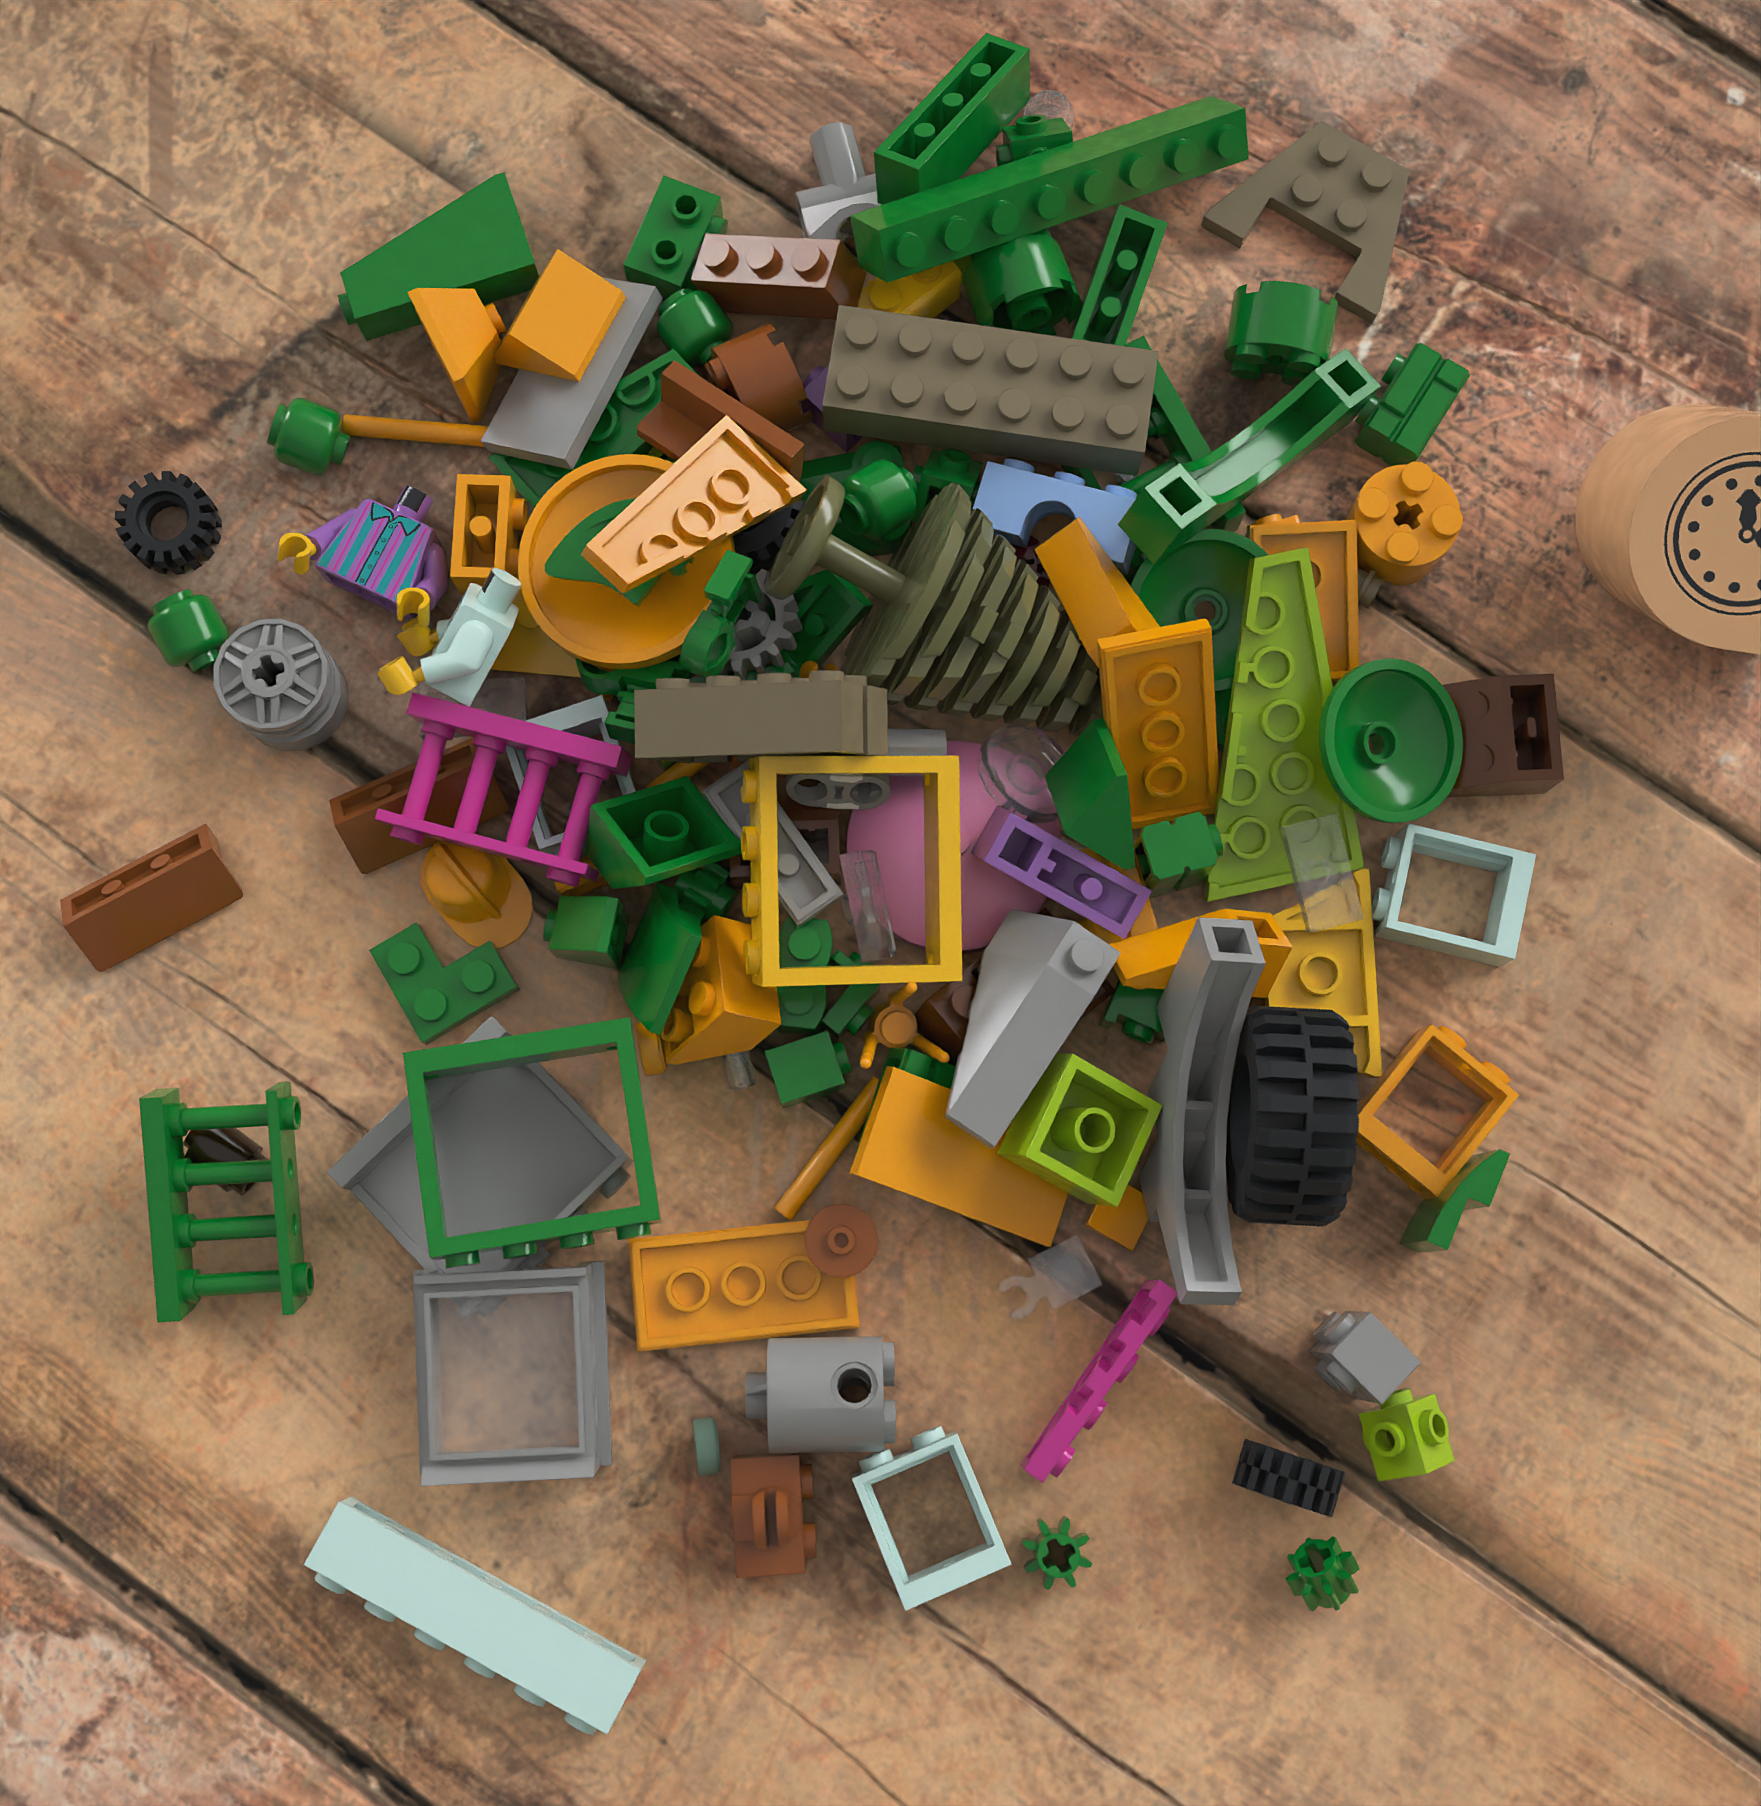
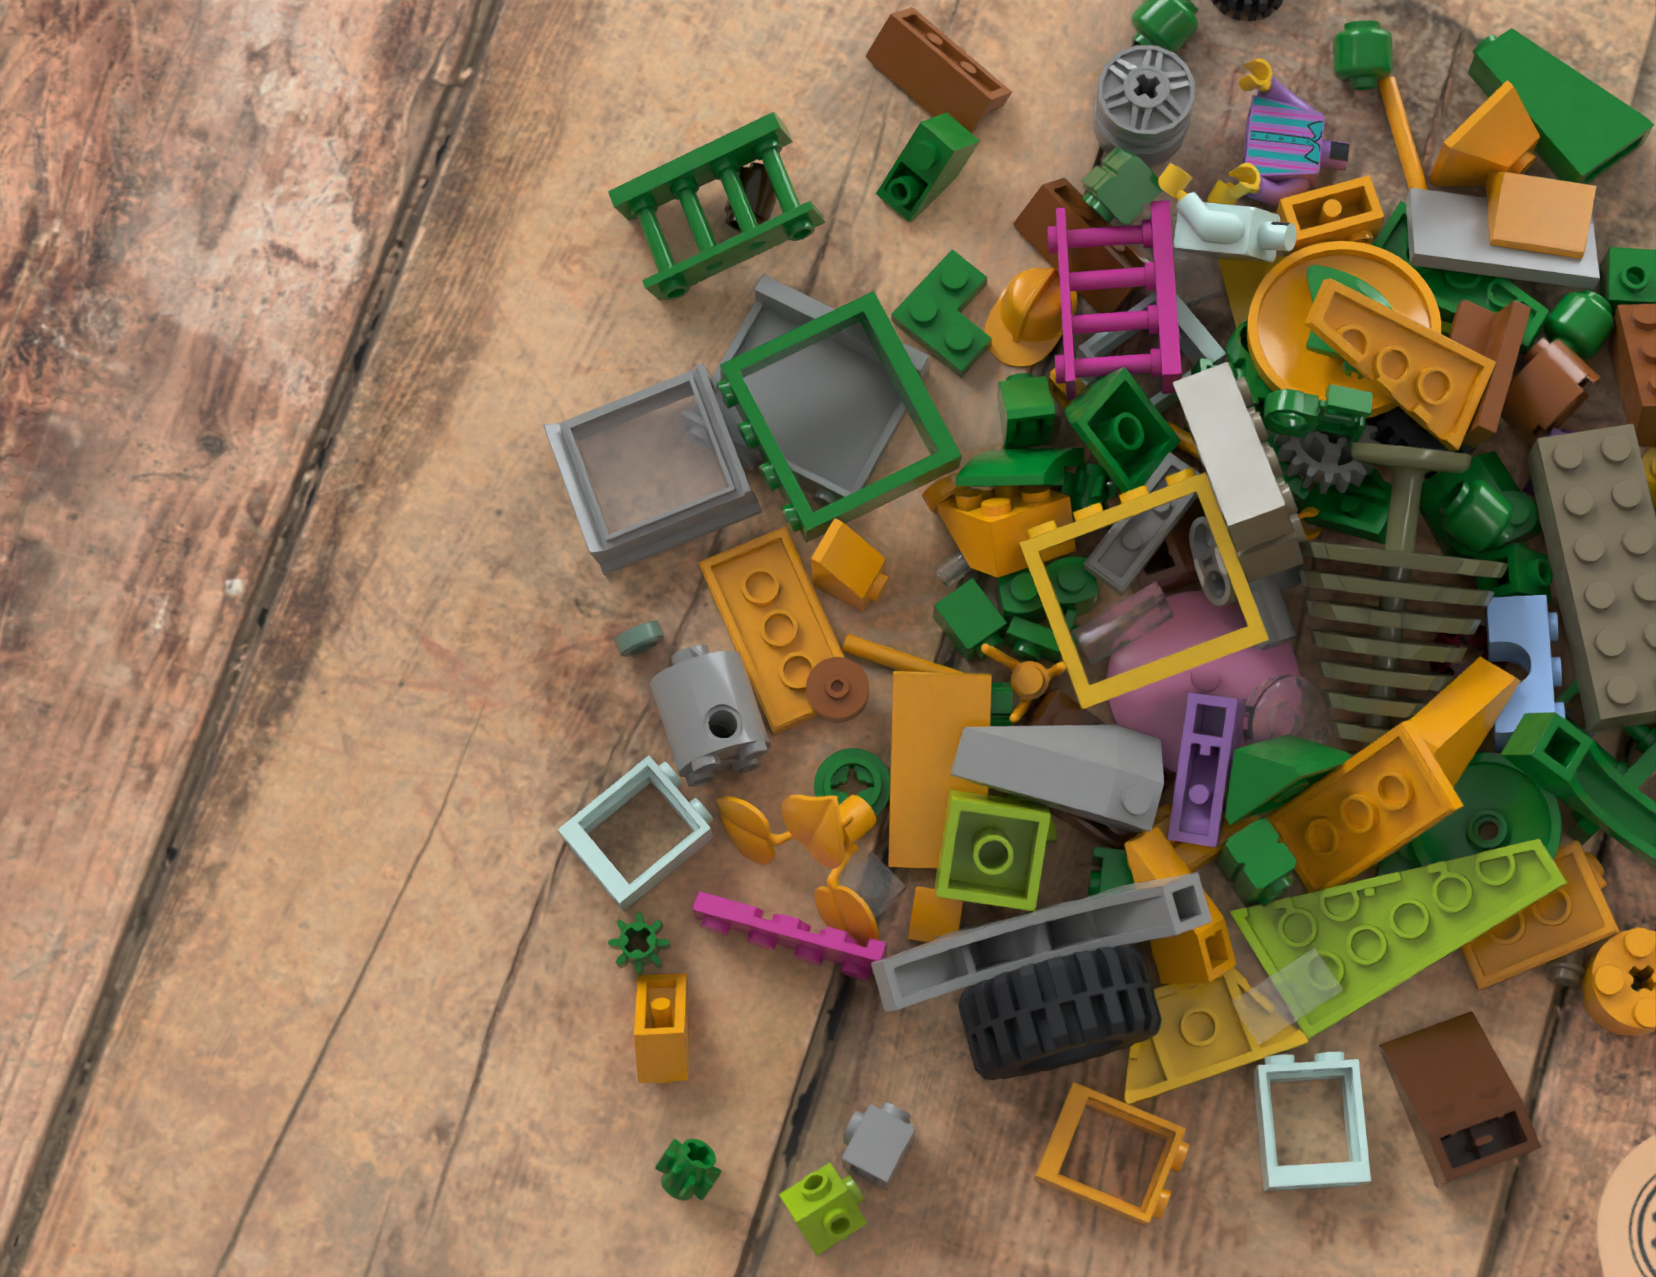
camera: 80 degrees right, 5 degrees down
(260, 945) = (927, 165): none -> green slope
(372, 740) = (1120, 186): none -> green brick
(474, 1614) = (457, 506): light aqua brick -> none
(706, 1182) = (849, 567): none -> light orange slope
(770, 1514) = (602, 705): dark orange brick -> none
(971, 1243) = (867, 768): none -> green gear
(1022, 1316) = (827, 833): none -> light orange plant
(1156, 1555) = (662, 1028): none -> light orange slope
(1288, 1478) = (758, 1114): black tyre -> none
(1411, 735) = (1442, 1040): green dish -> none
(1471, 1188) = (1052, 1195): green slope -> none

